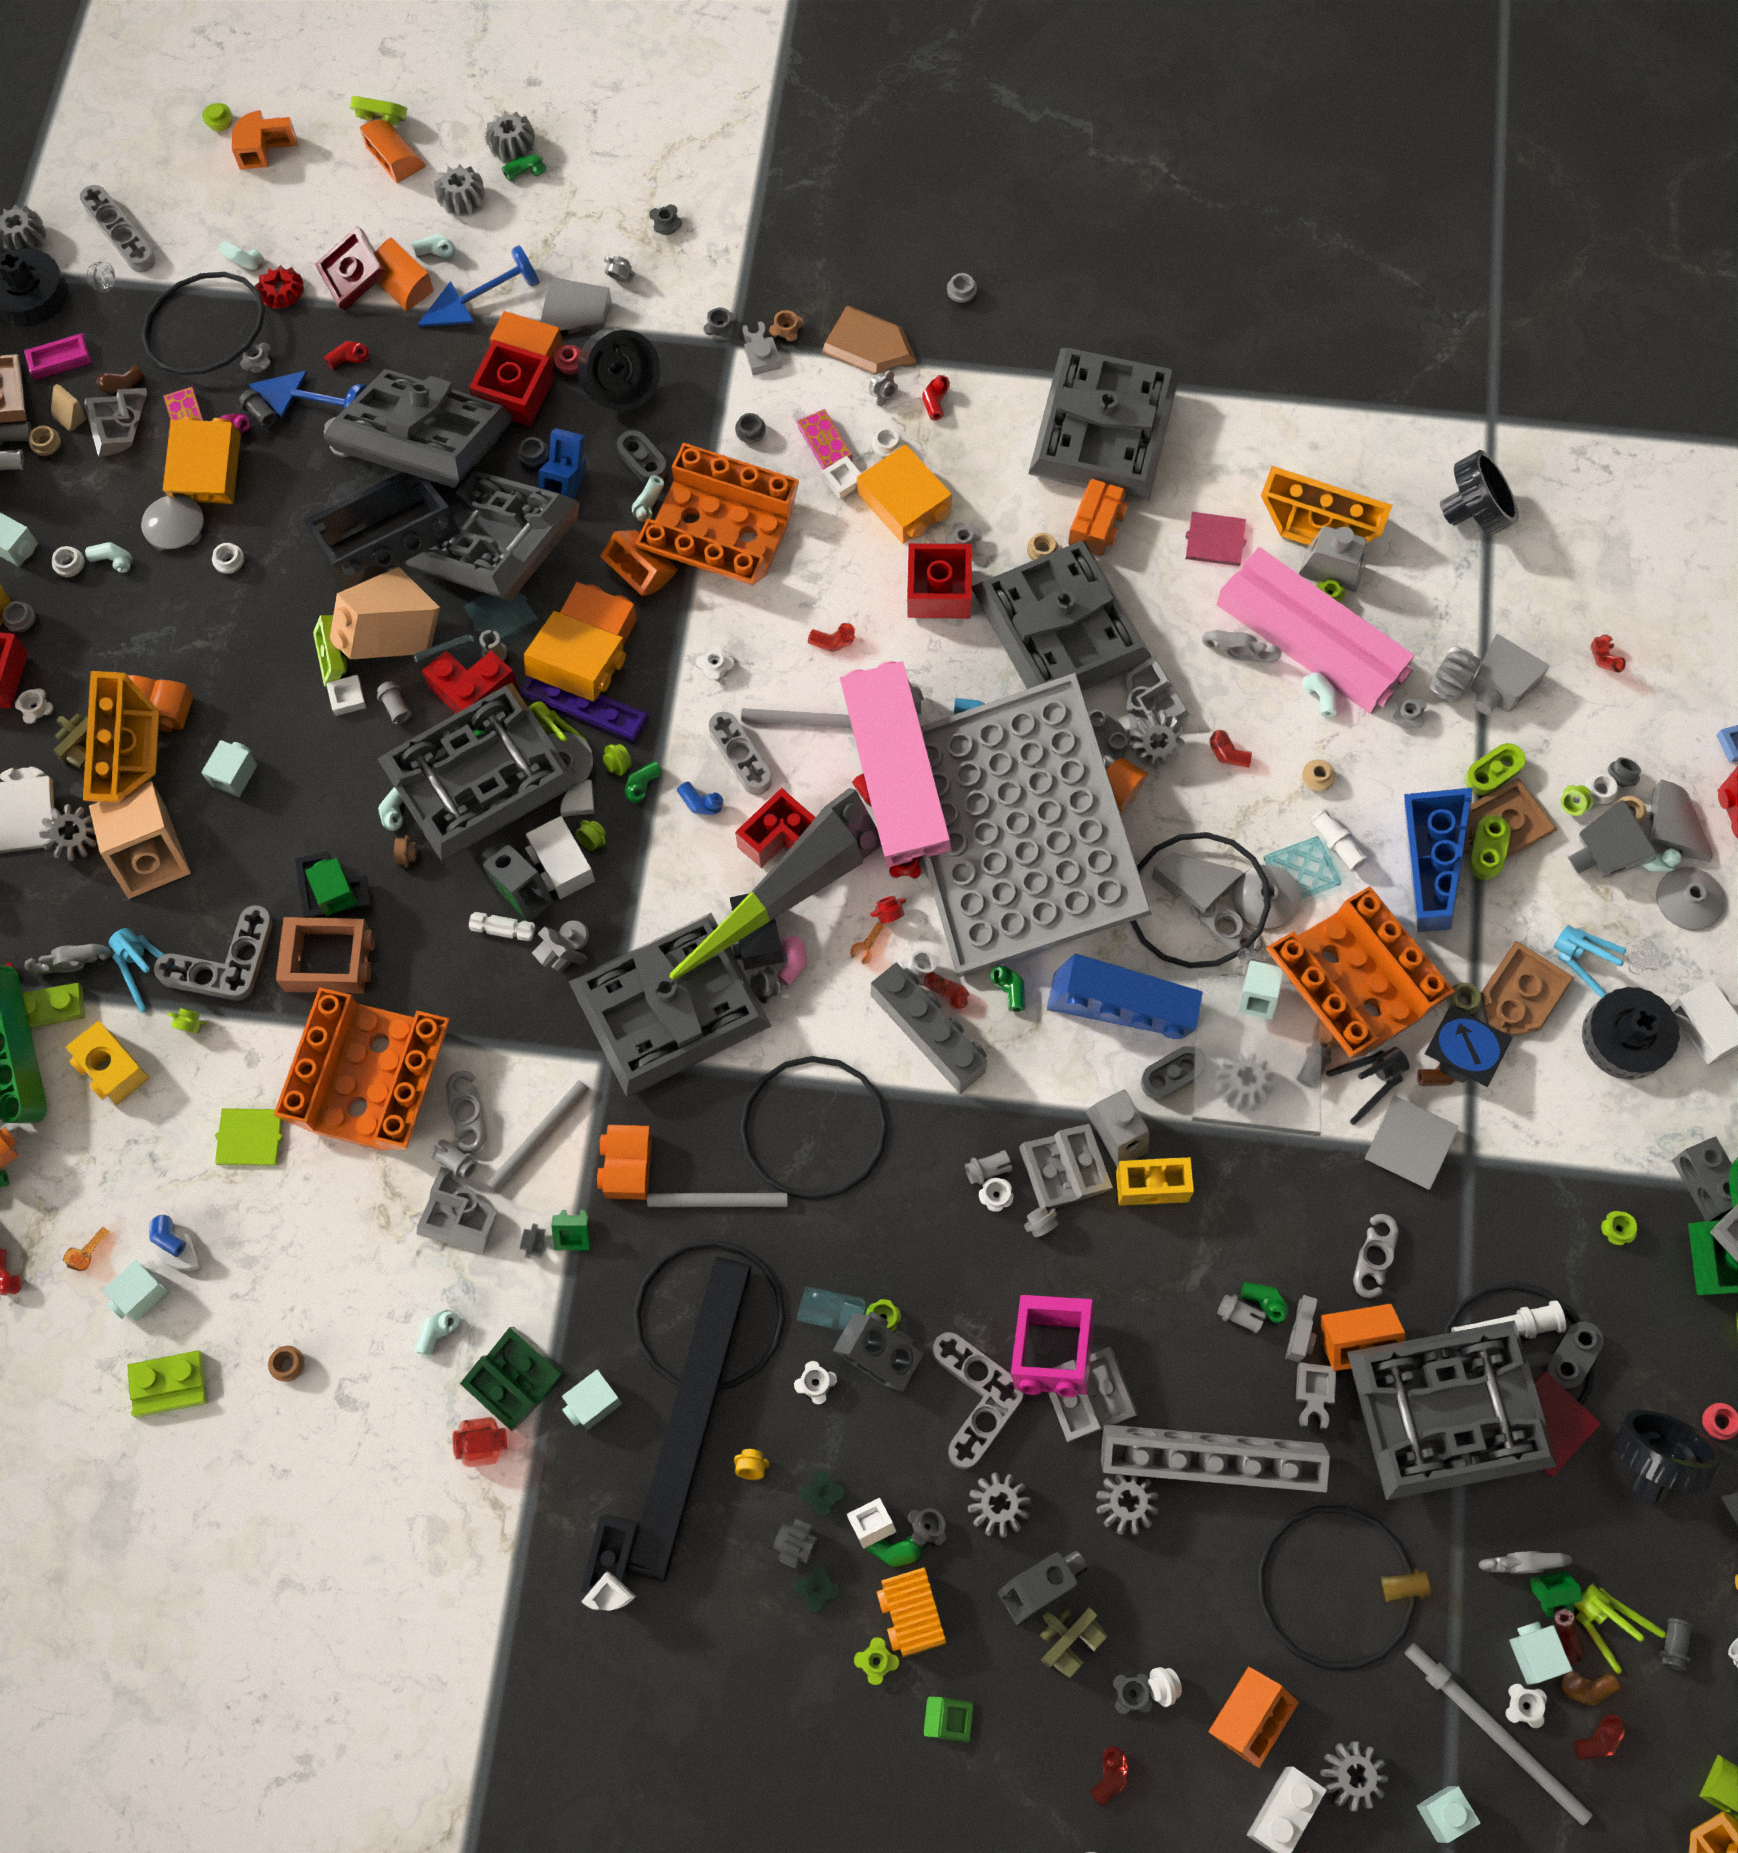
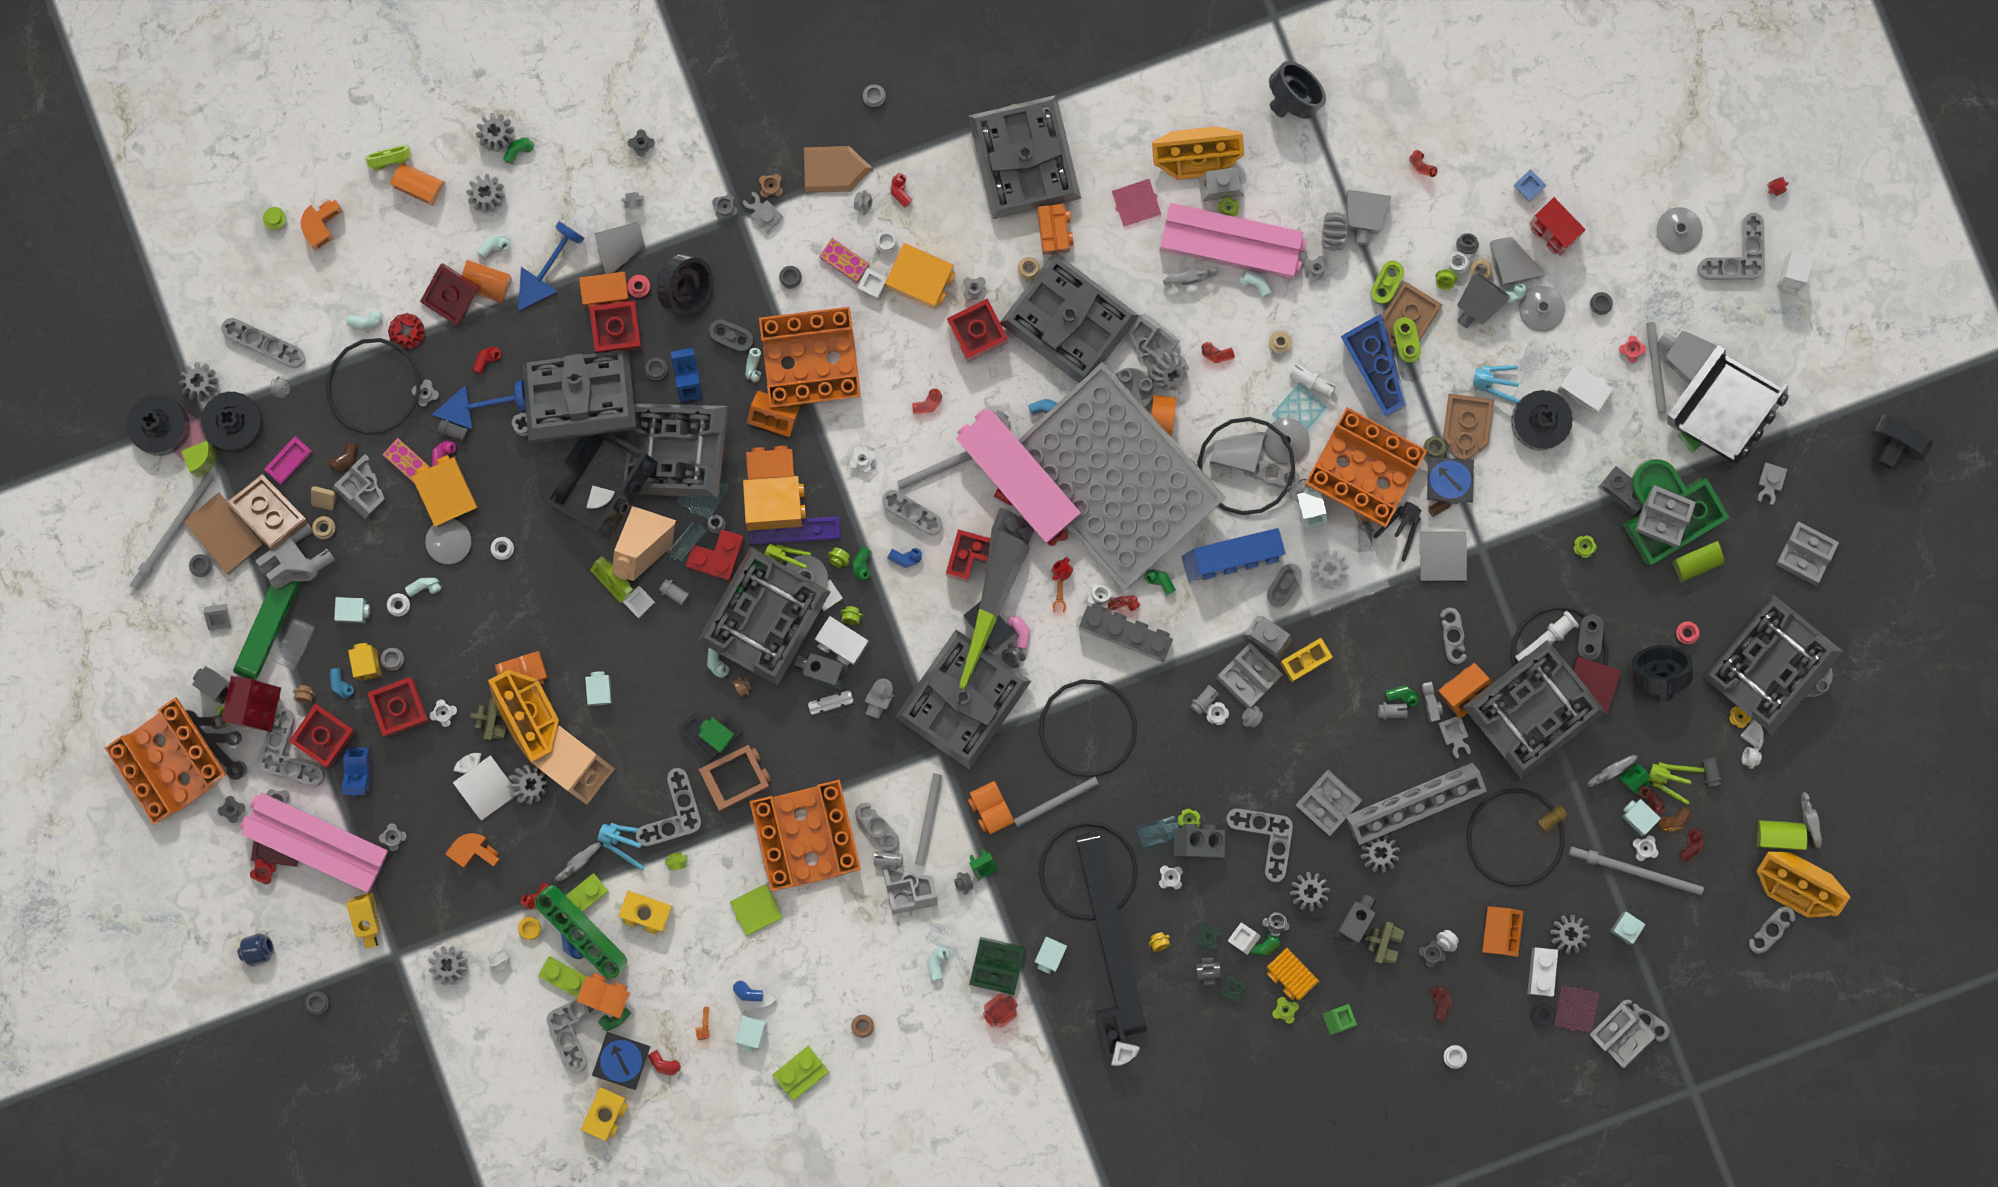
camera: 30 degrees left, 15 degrees up
(1053, 1312) = (1287, 767): dark pink window -> none

